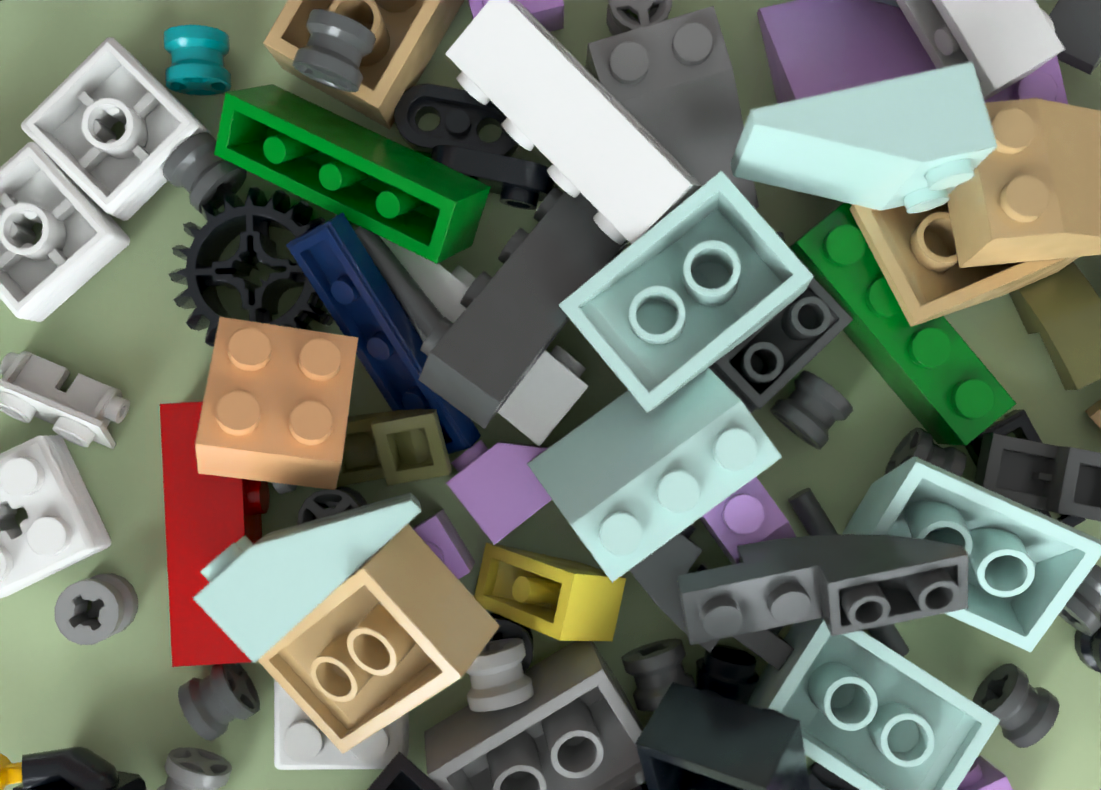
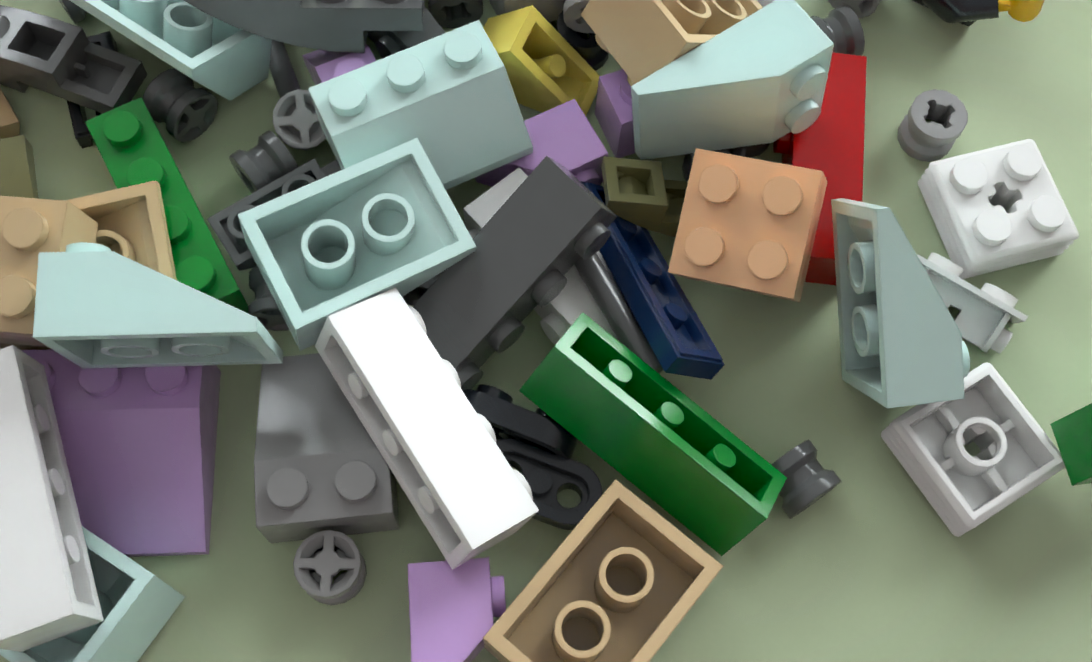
camera: 170 degrees left, 20 degrees down
(77, 133) = (926, 542): white brick -> none
(121, 322) = (892, 321): none -> light aqua slope
(197, 60) = (797, 593): teal wheel -> none
(252, 223) = (804, 373): black gear -> none
(334, 50) = (650, 523): dark grey wheel -> none
(797, 456) = (297, 110): none -> light grey wheel

